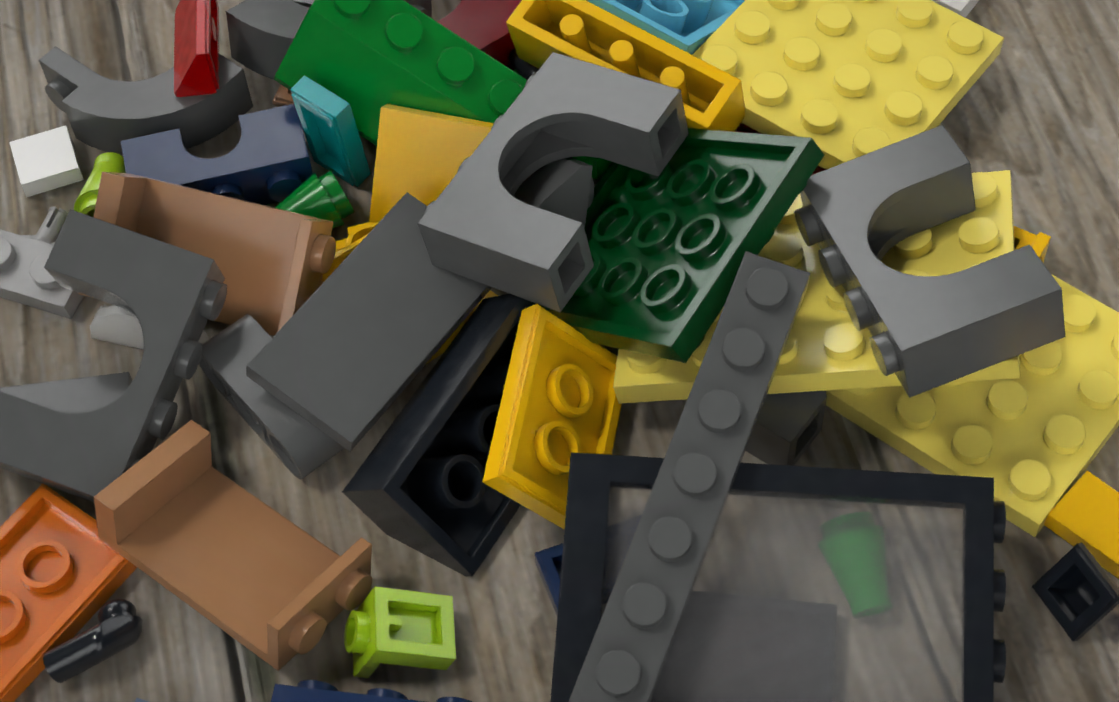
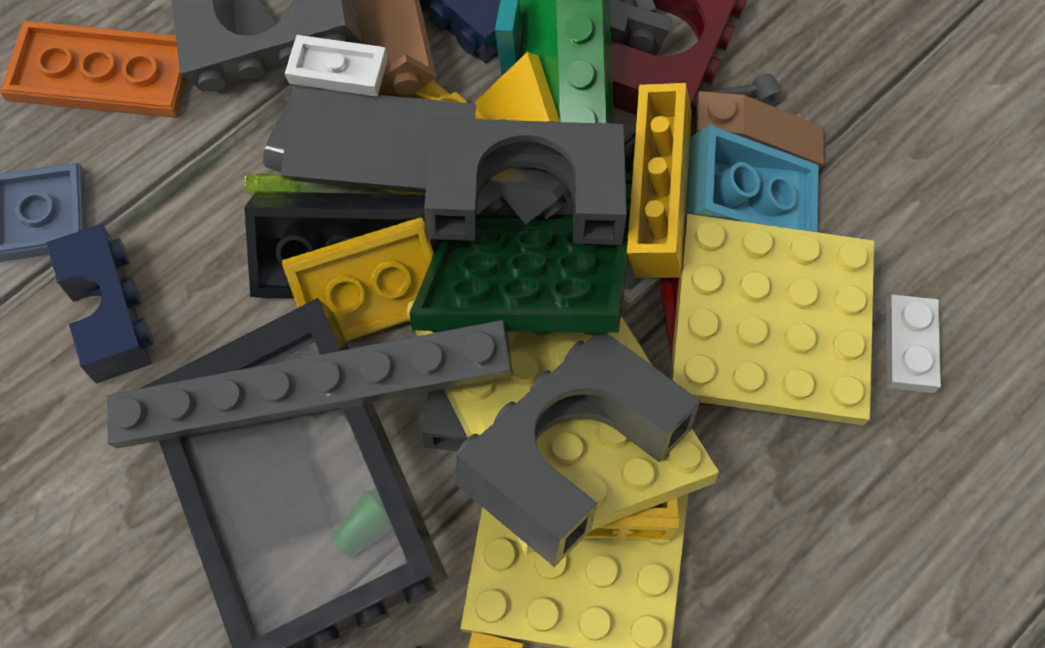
camera: 55 degrees right, 10 degrees up
(115, 632) = (99, 122): black arm -> none
(228, 550) = (193, 155): medium nougat panel -> none
(257, 300) = (336, 65): none -> white plate
(319, 198) = (462, 65): green cone -> none
(341, 475) = (270, 184): none -> clear neon green tile
(401, 630) = (184, 276): lime bracket -> none

